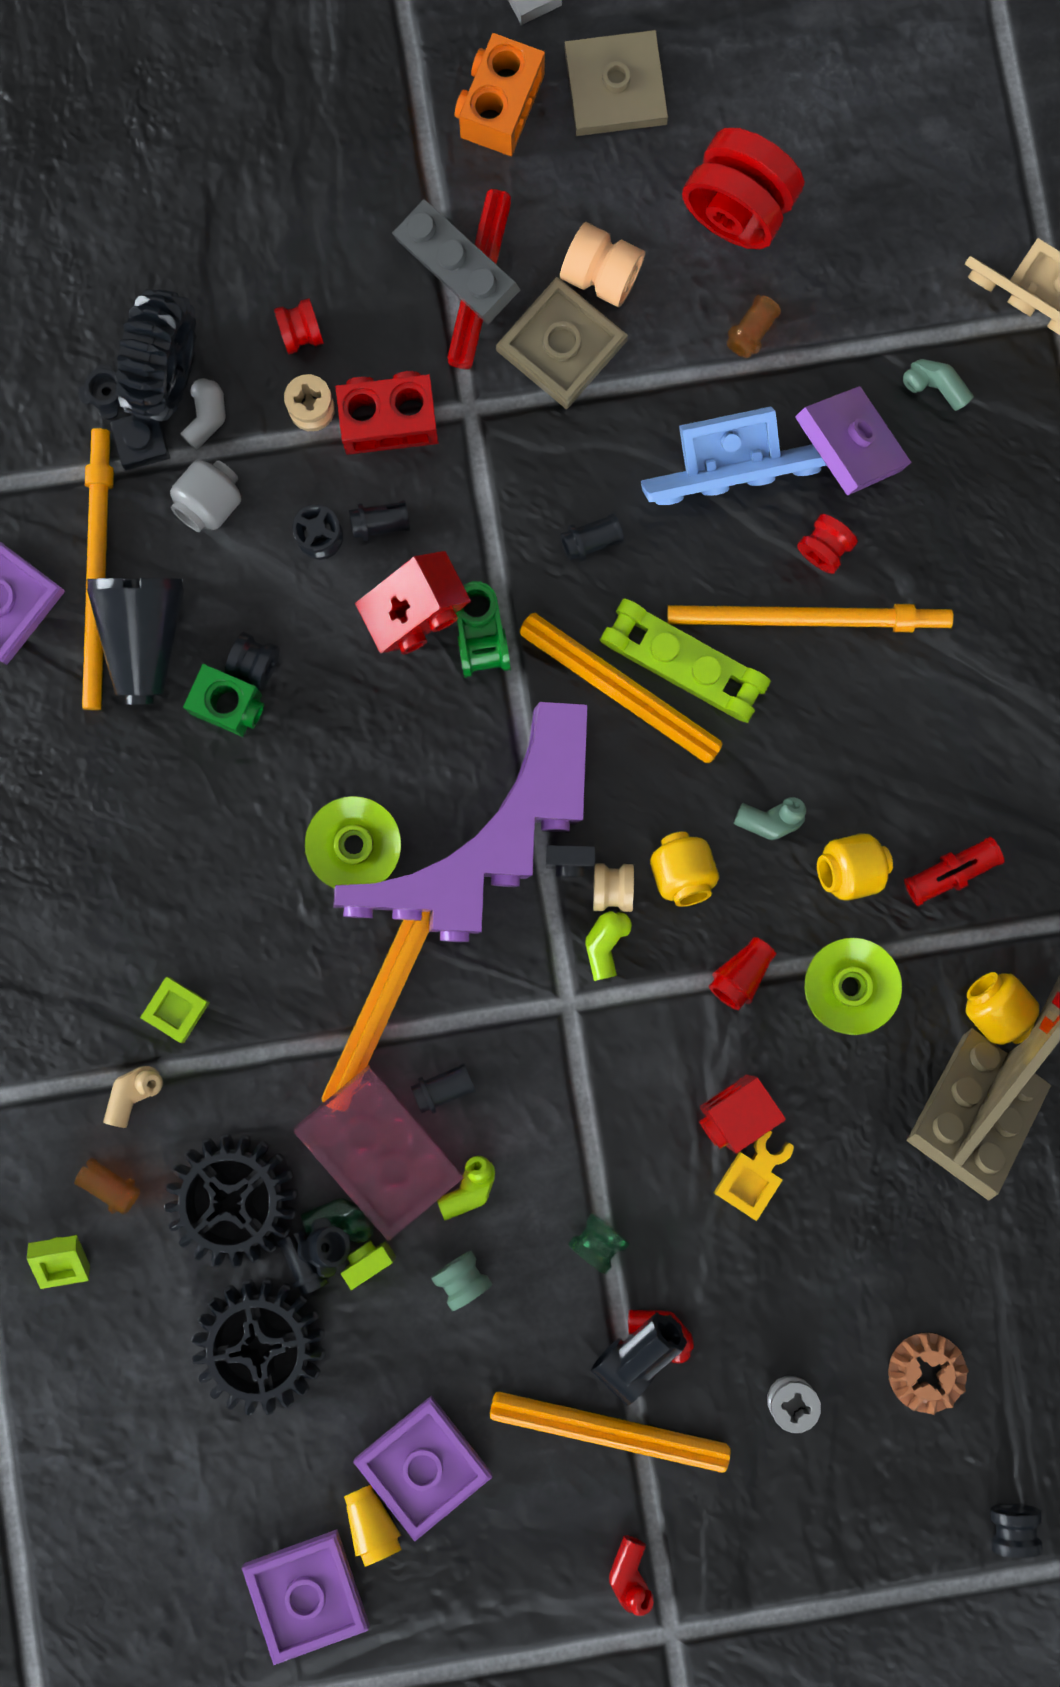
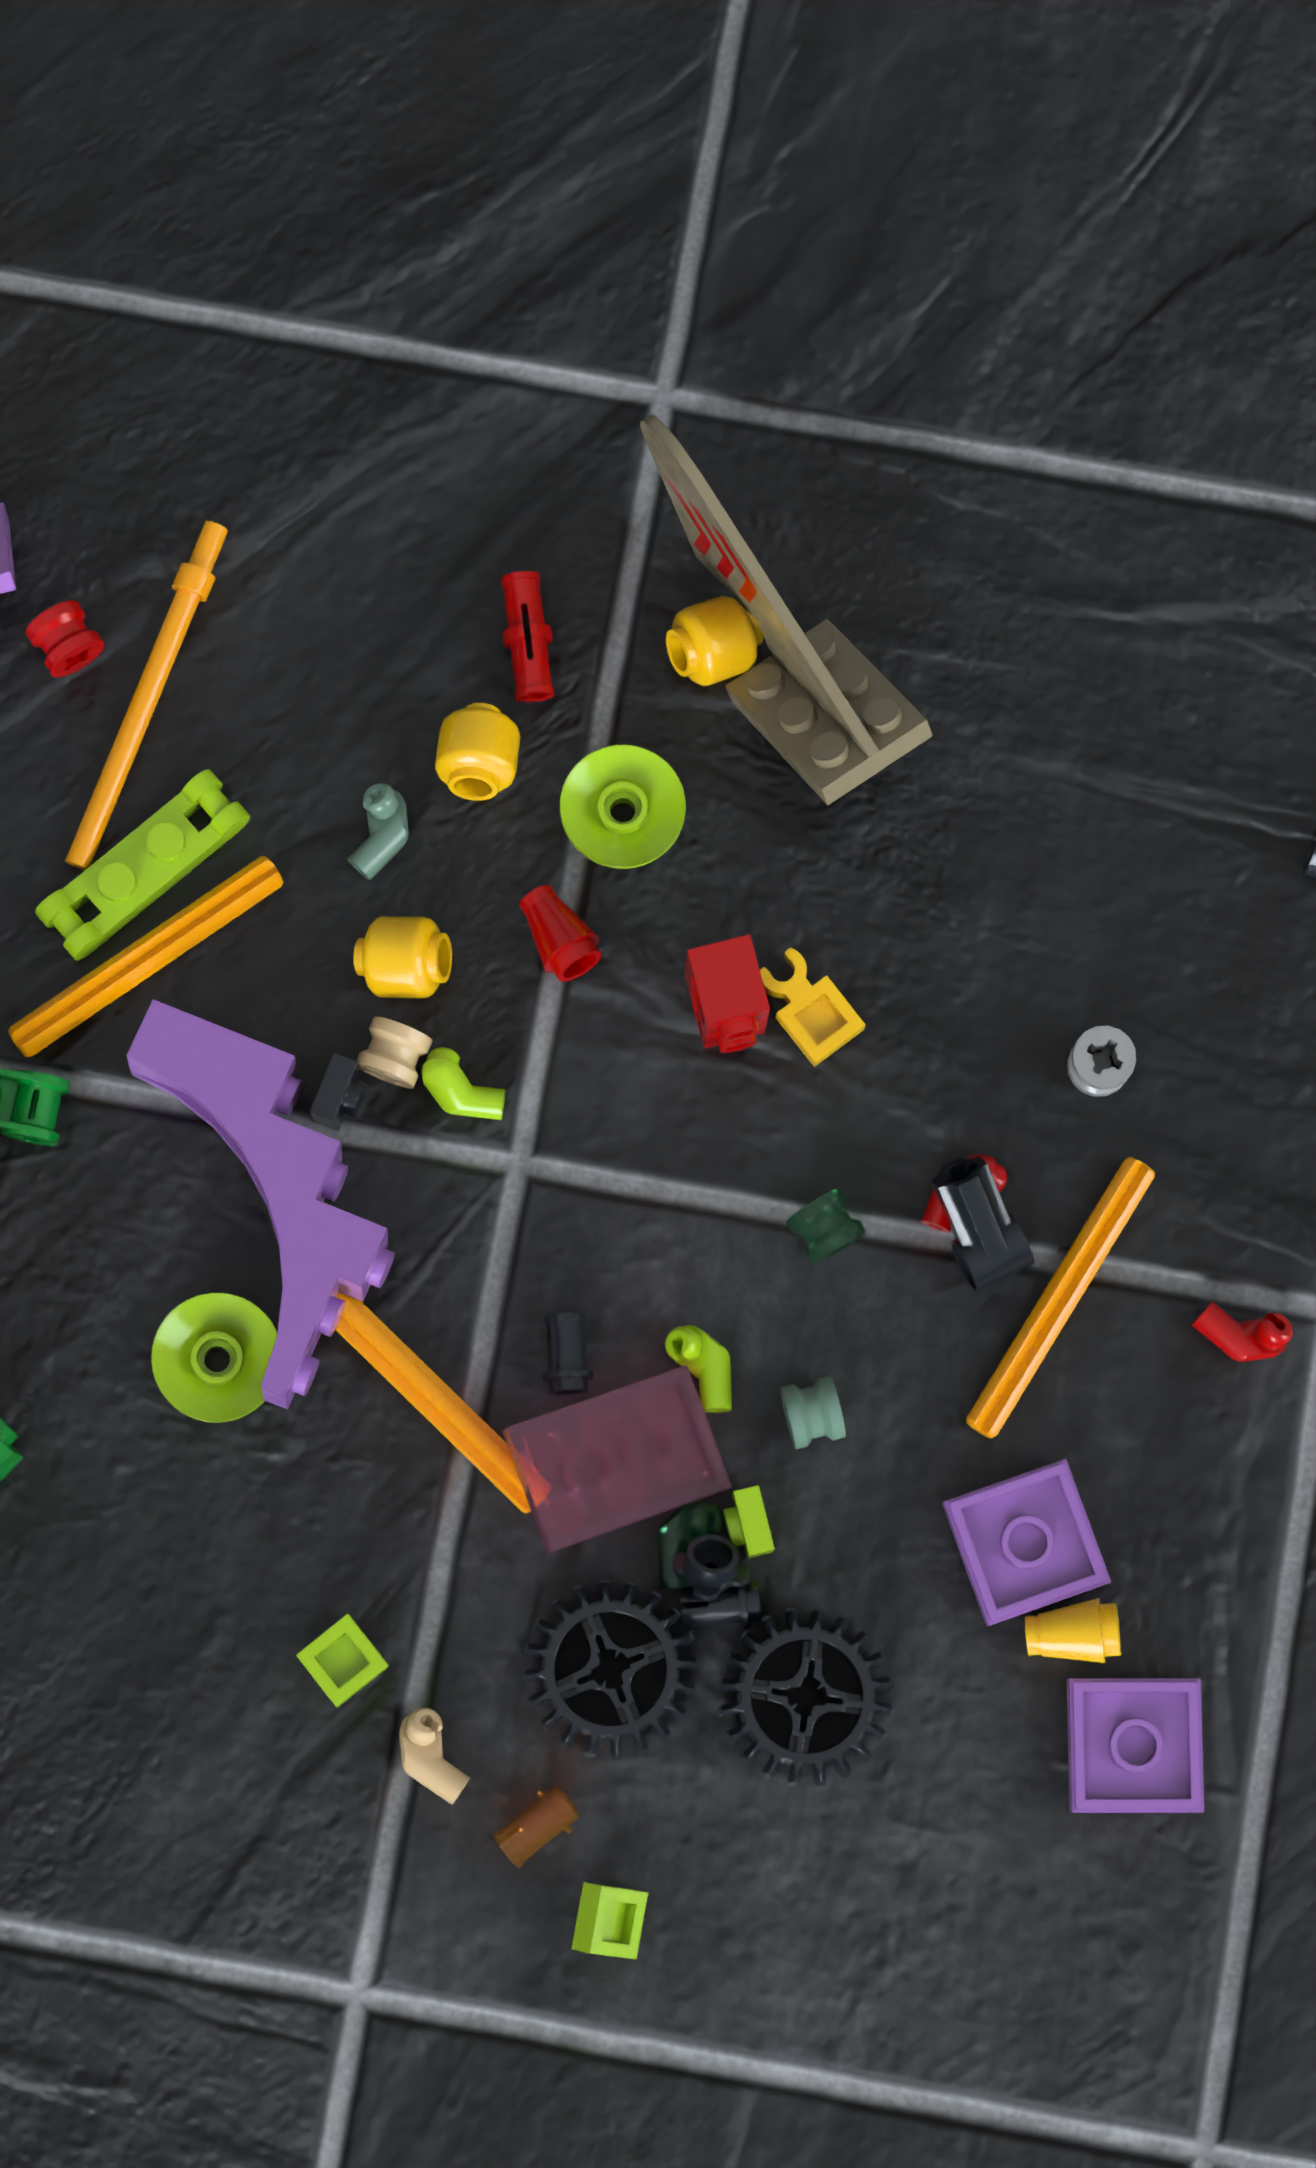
camera: 75 degrees left, 5 degrees down
(905, 1371) = (1105, 913): nougat gear -> none

